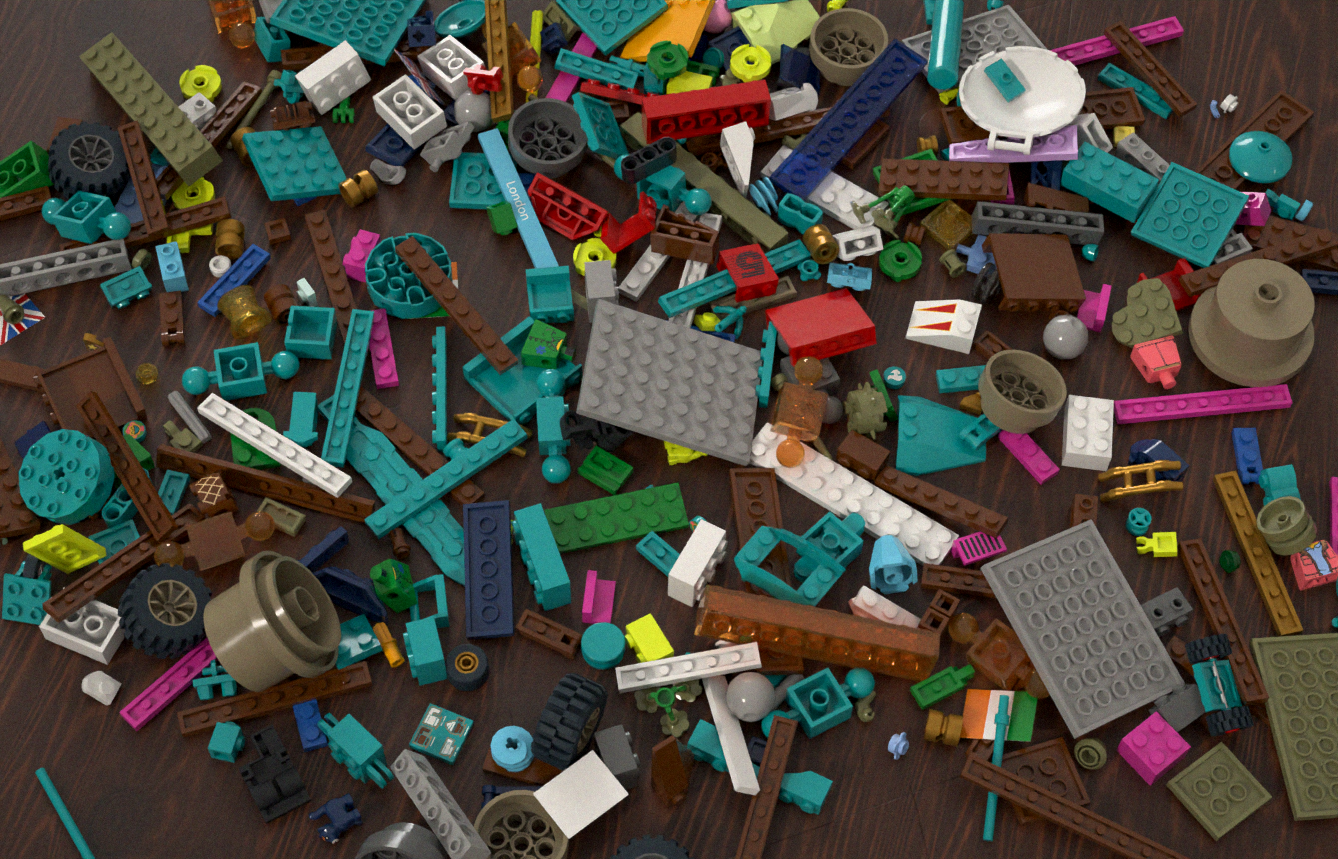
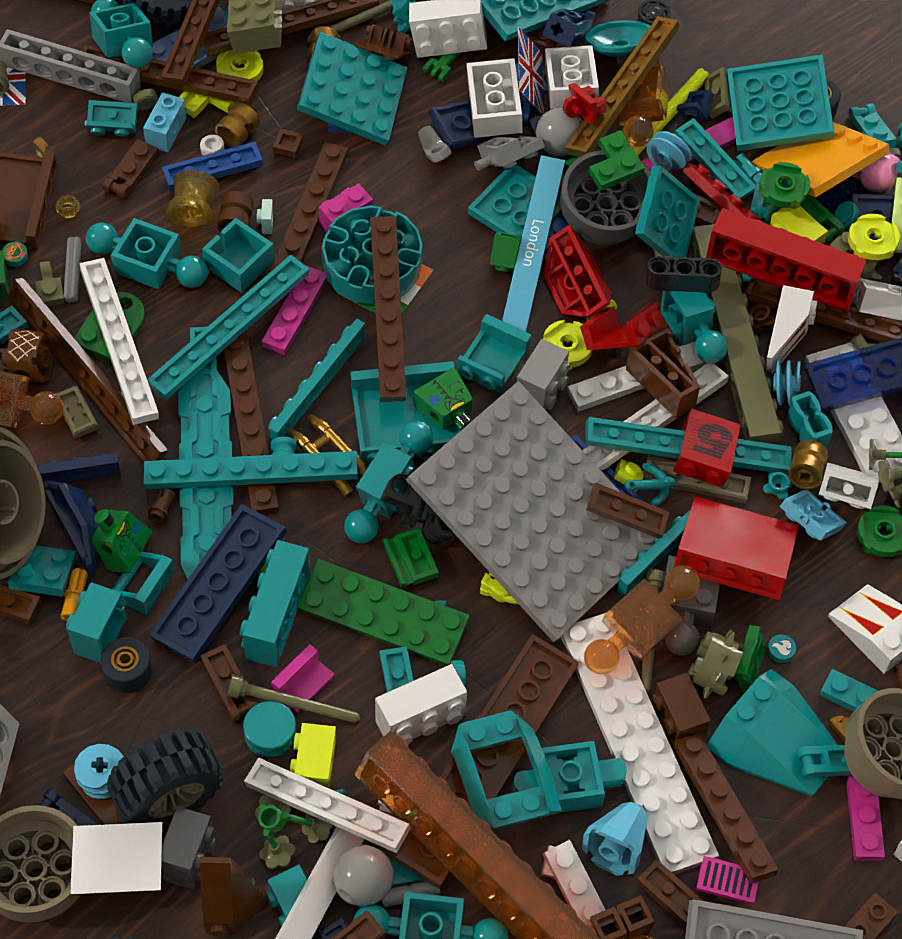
camera: 35 degrees right, 0 degrees up
(303, 419) = (165, 333): teal piece -> none
(357, 188) = (392, 144): pearl gold wheel -> none
(441, 734) = (54, 713): teal tile -> none
(543, 108) = (621, 162): none -> green plate
(562, 82) = (668, 151): none -> medium azure piece
(562, 629) = (240, 687): none -> olive piece
(732, 345) = (627, 510): none -> reddish brown plate

